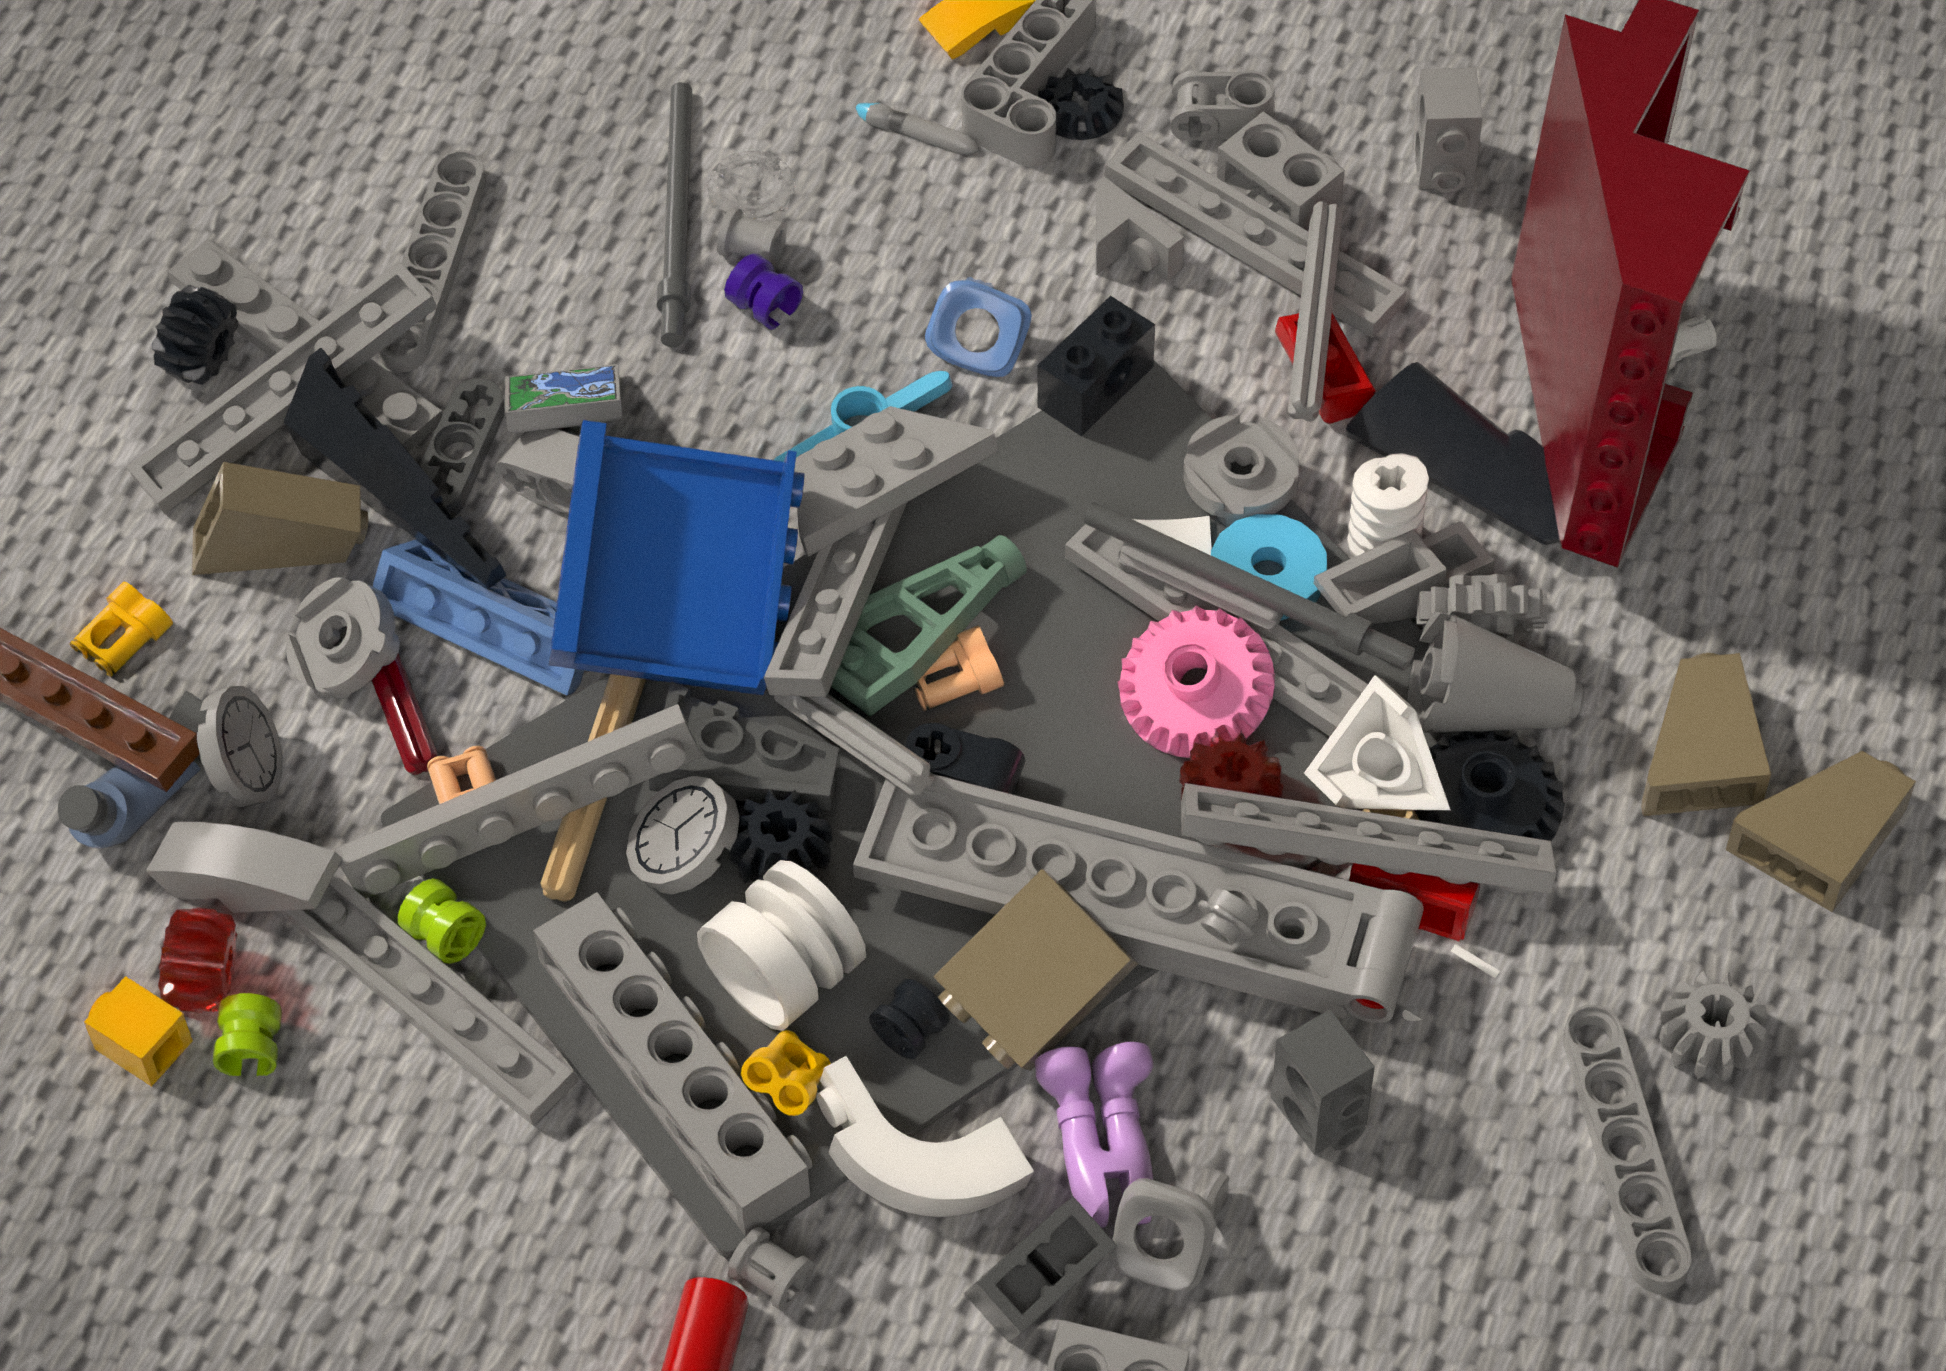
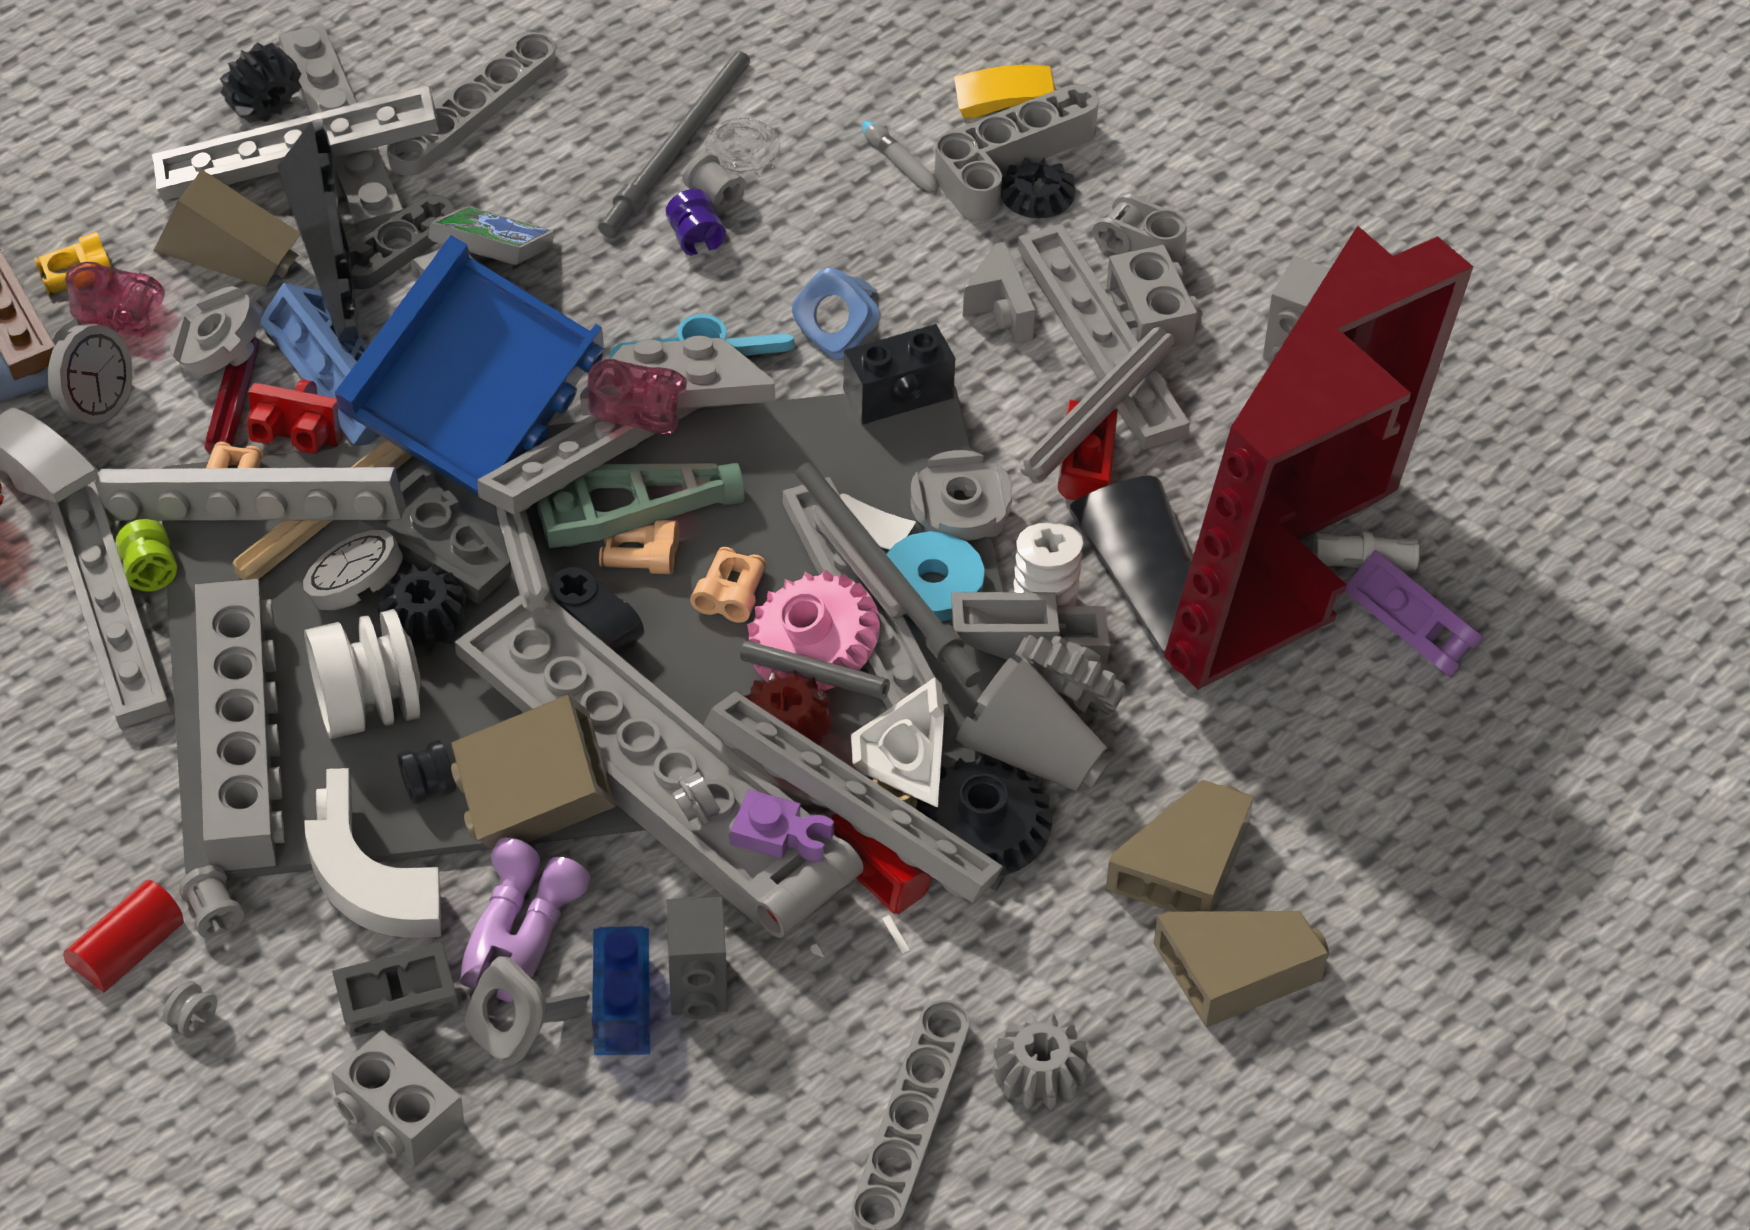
camera: 25 degrees right, 5 degrees down
(194, 649) = (111, 299): none -> clear pink piece
(487, 691) = (294, 414): none -> red hips
(786, 1072) = (297, 766): yellow piece -> none
(880, 506) = (638, 397): none -> clear pink piece
(1075, 685) = (726, 597): none -> light nougat piece
(1234, 721) = (810, 667): none -> dark grey piece
(1262, 1156) = (621, 990): none -> clear blue brick
(1320, 911) = (773, 824): none -> medium lavender plate
(1750, 391) = (1411, 612): none -> medium lavender plate

